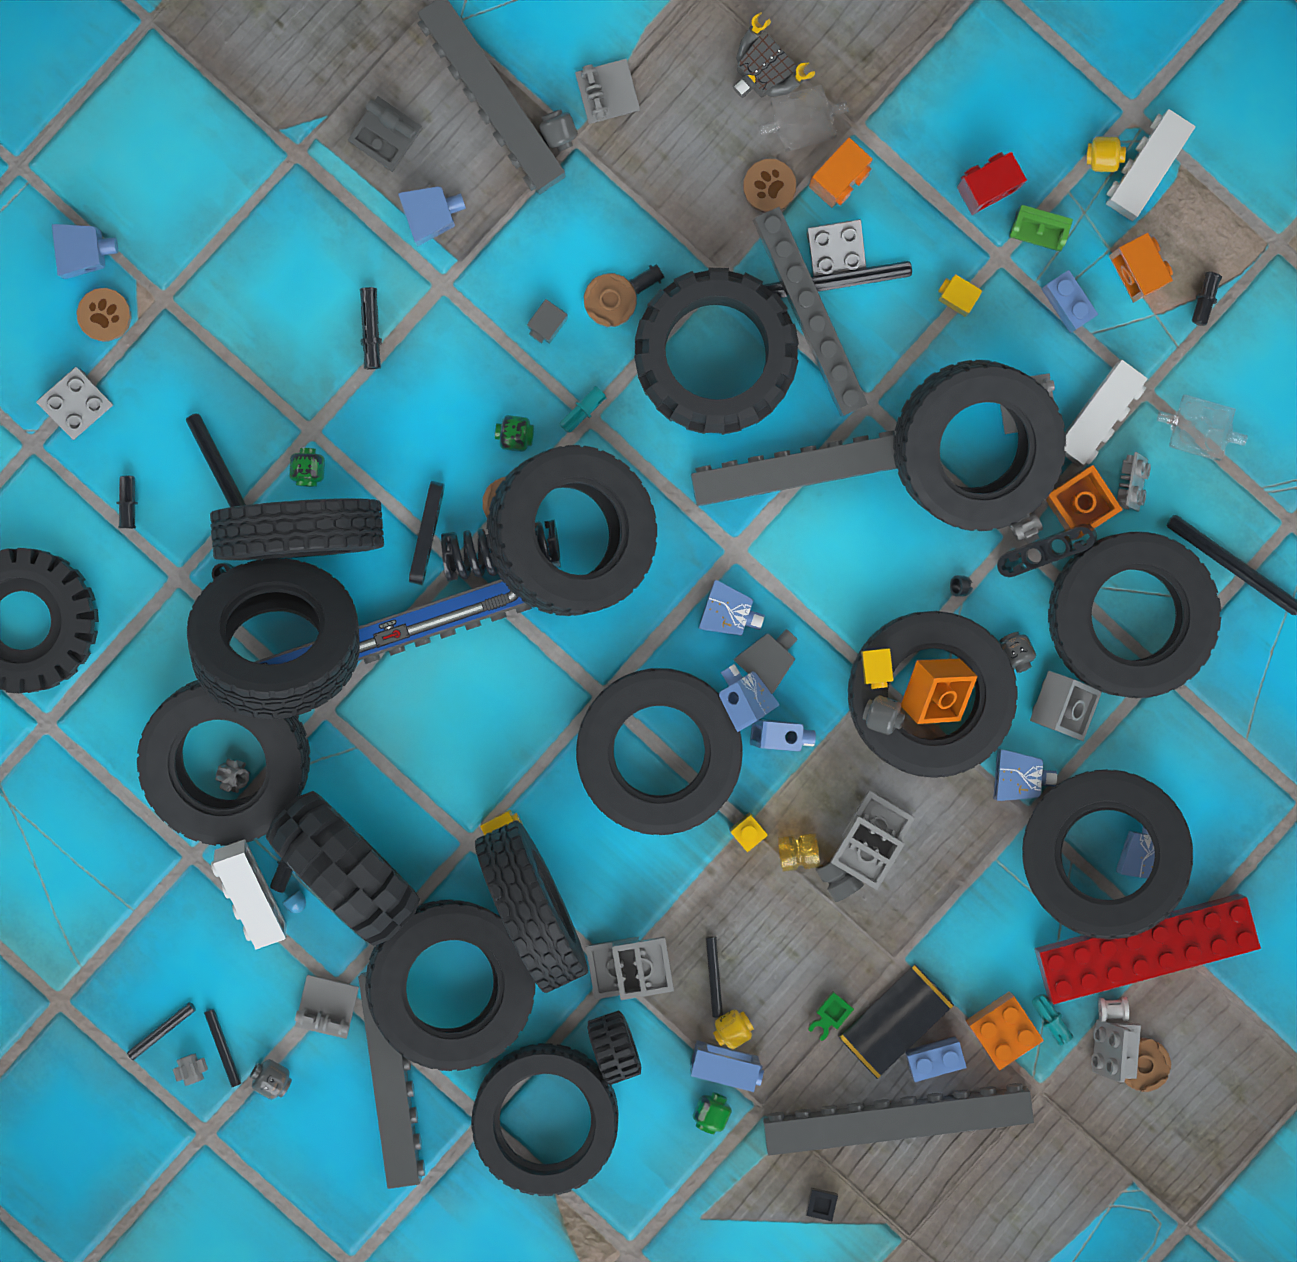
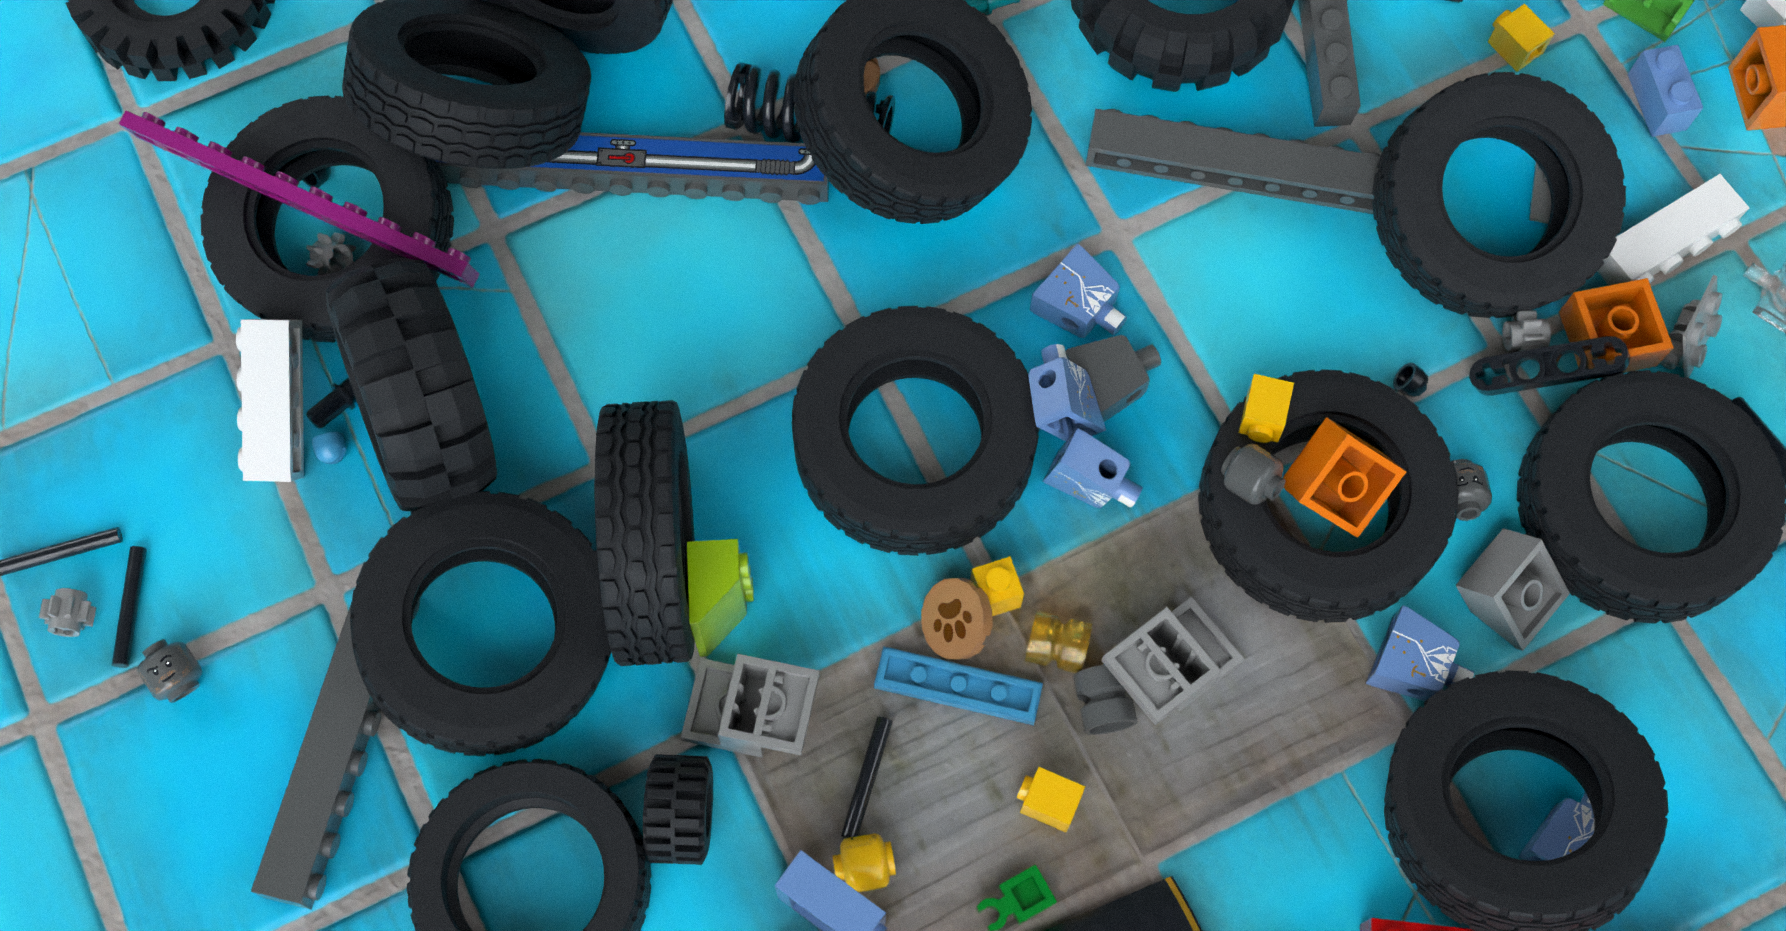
camera: 20 degrees right, 20 degrees down
(199, 768) = (314, 203): none -> magenta plate
(326, 1006) = (299, 605): light grey hinge -> none
(426, 533) = (718, 71): black beam -> none
(581, 908) = (717, 590): none -> lime slope
(731, 863) = (956, 618): none -> medium nougat tile
(747, 898) = (958, 685): none -> dark azure tile
(828, 949) = (1050, 798): none -> yellow brick

